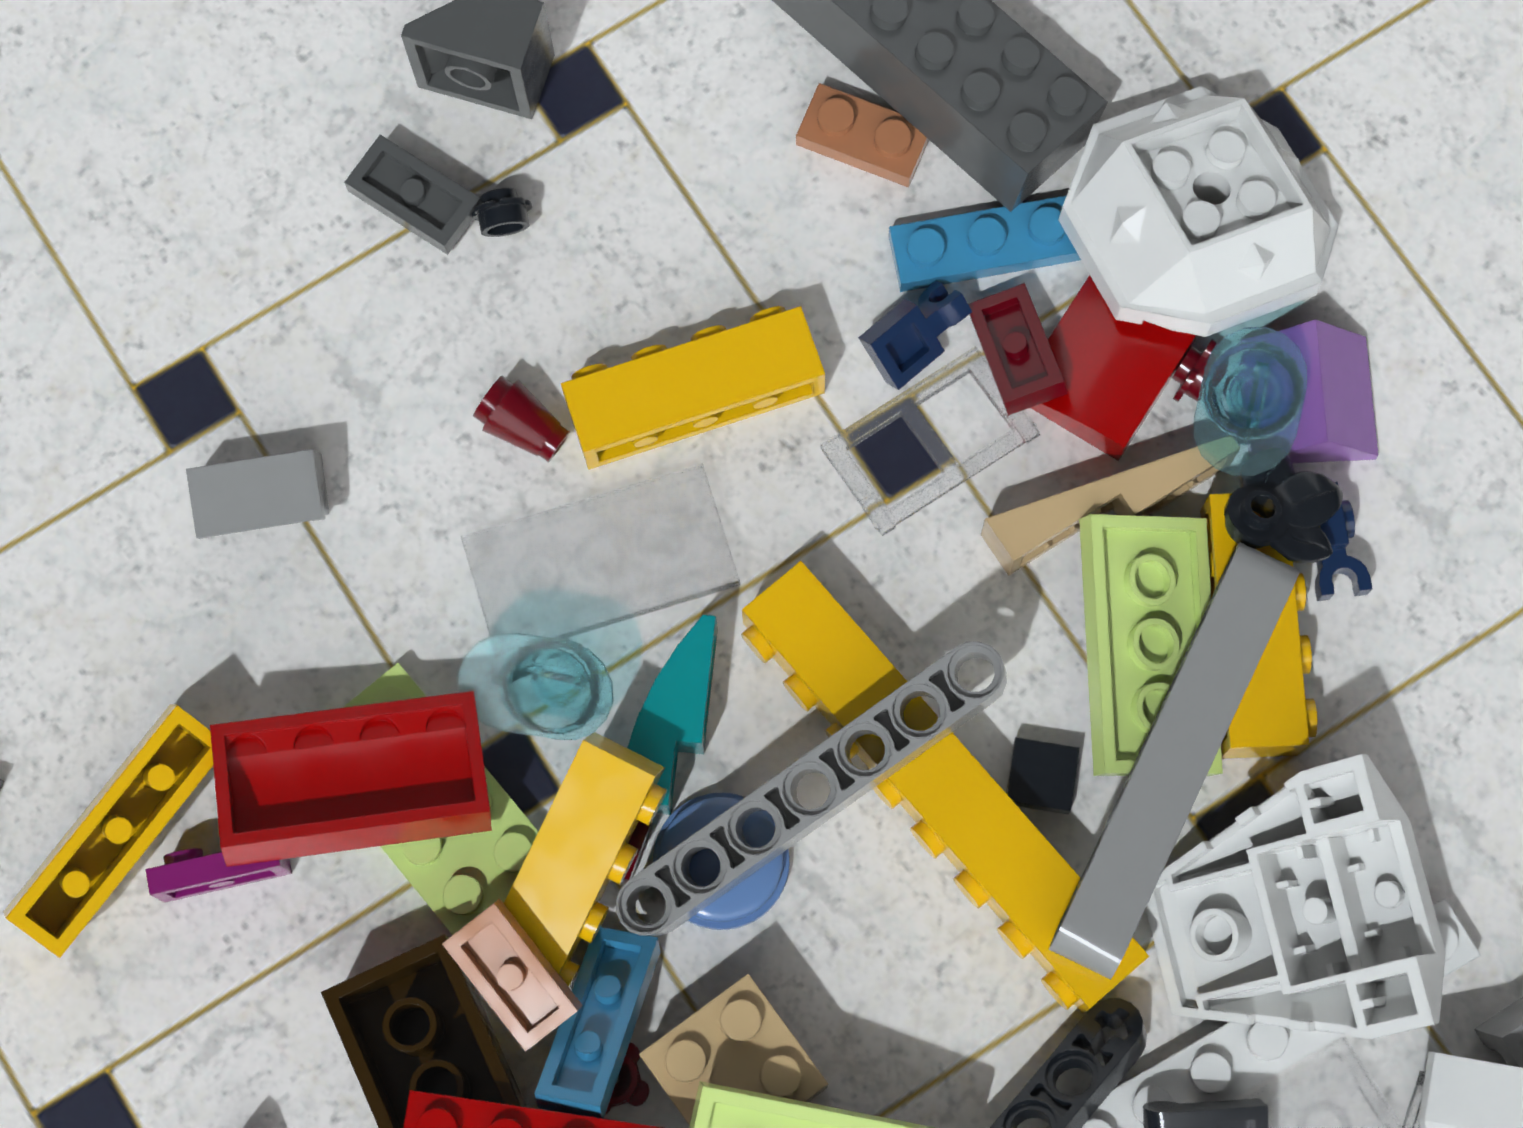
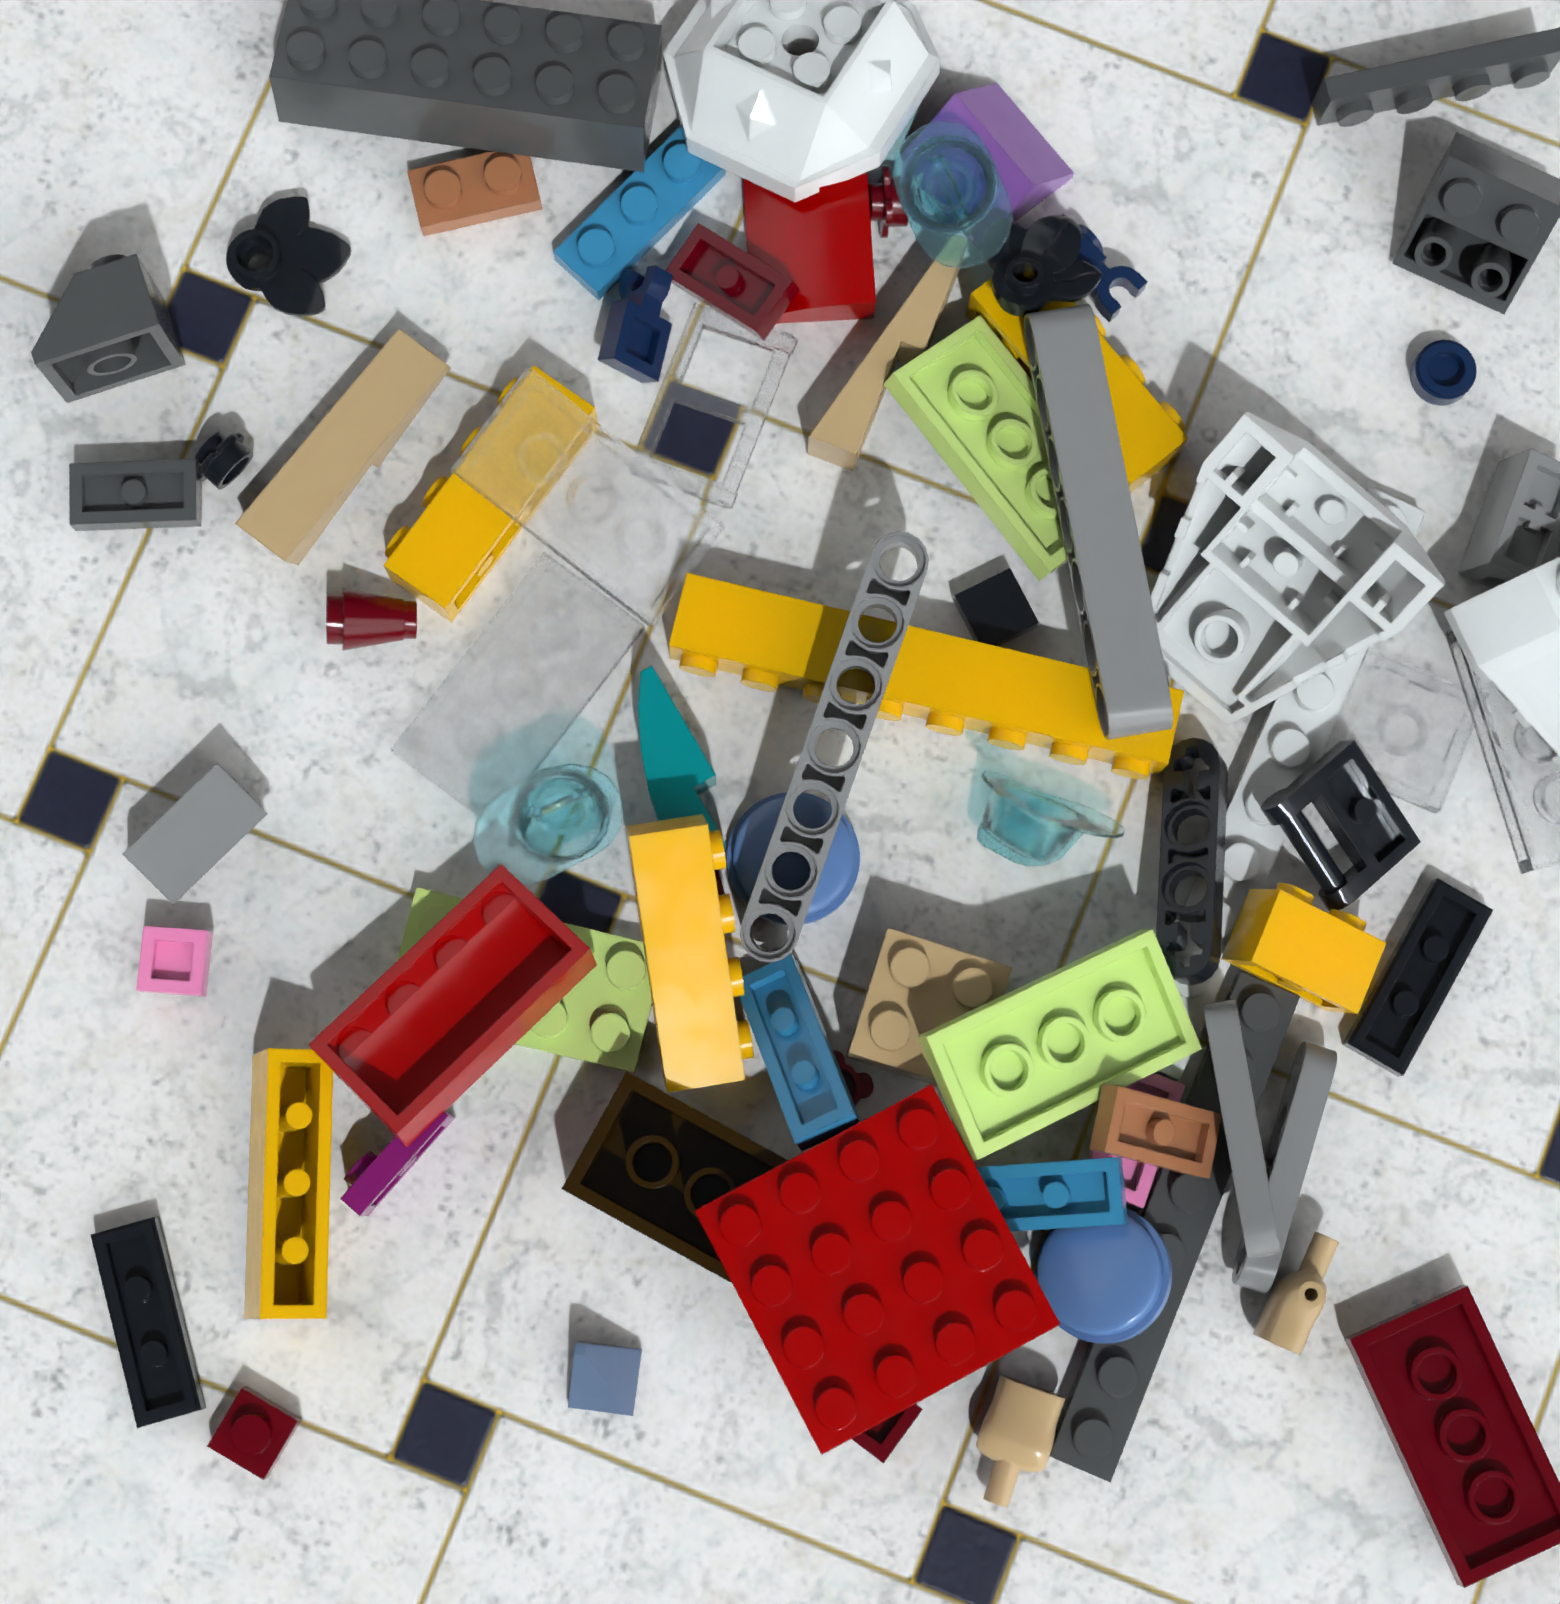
camera: 45 degrees left, 5 degrees up
(166, 585) = (174, 961): none -> bright pink plate
(512, 975) = (705, 1063): plate -> none
(600, 268) = (343, 447): none -> tan slope
(681, 94) = (296, 254): none -> black plate
(766, 444) = (588, 497): none -> clear tile
(942, 979) = (1036, 826): none -> clear light blue piece

